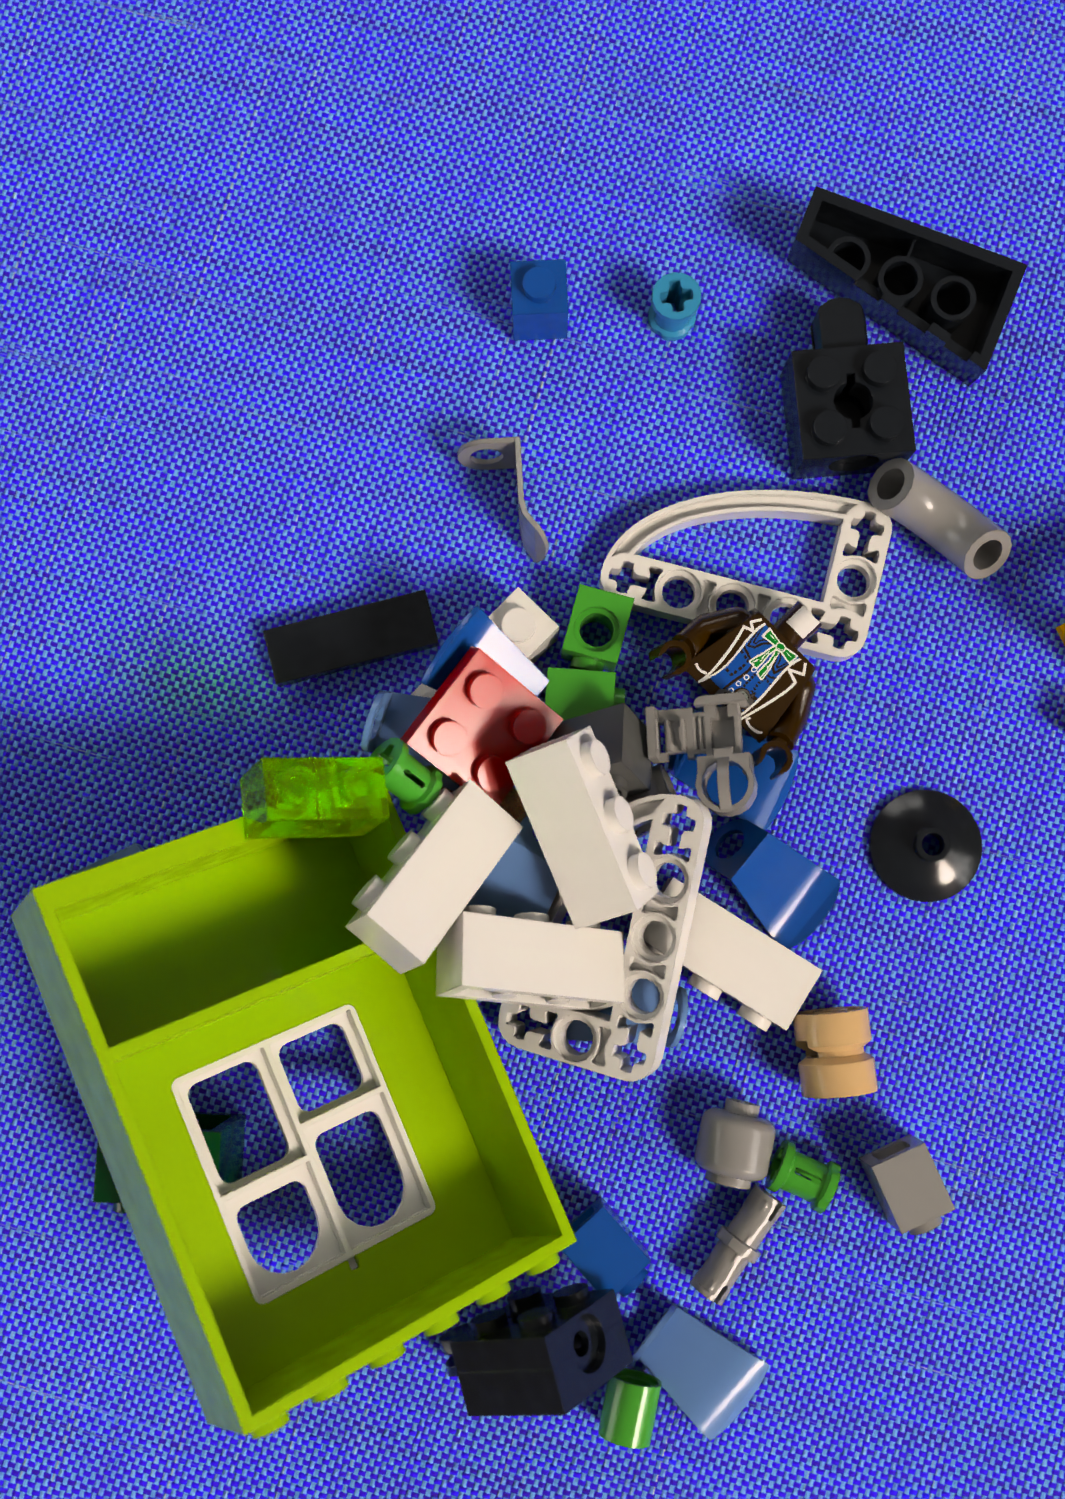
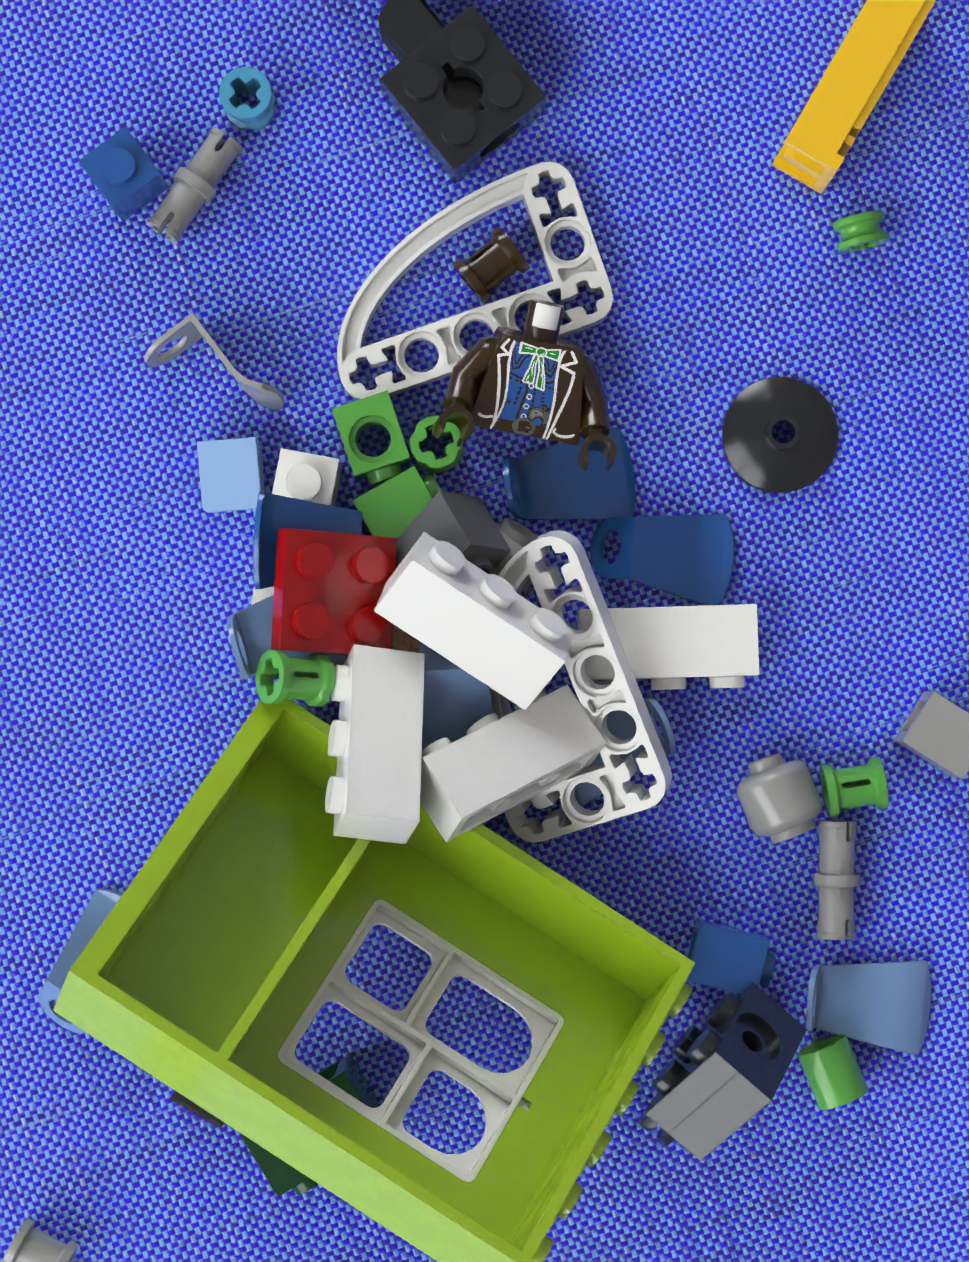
camera: 35 degrees left, 5 degrees up
(313, 797) = (236, 747): clear neon green brick -> none
(351, 638) = (162, 586): black tile -> none
(464, 581) = (230, 474): none -> light blue panel
(588, 346) = (194, 185): none -> light grey pin
(628, 675) = (427, 459): none -> bright green bush
(712, 733) = (532, 465): light grey piece -> none
(781, 558) = (491, 265): none -> dark brown bush
(835, 1052) = (813, 665): tan wheel -> none
(939, 517) = (606, 137): light grey cylinder -> none

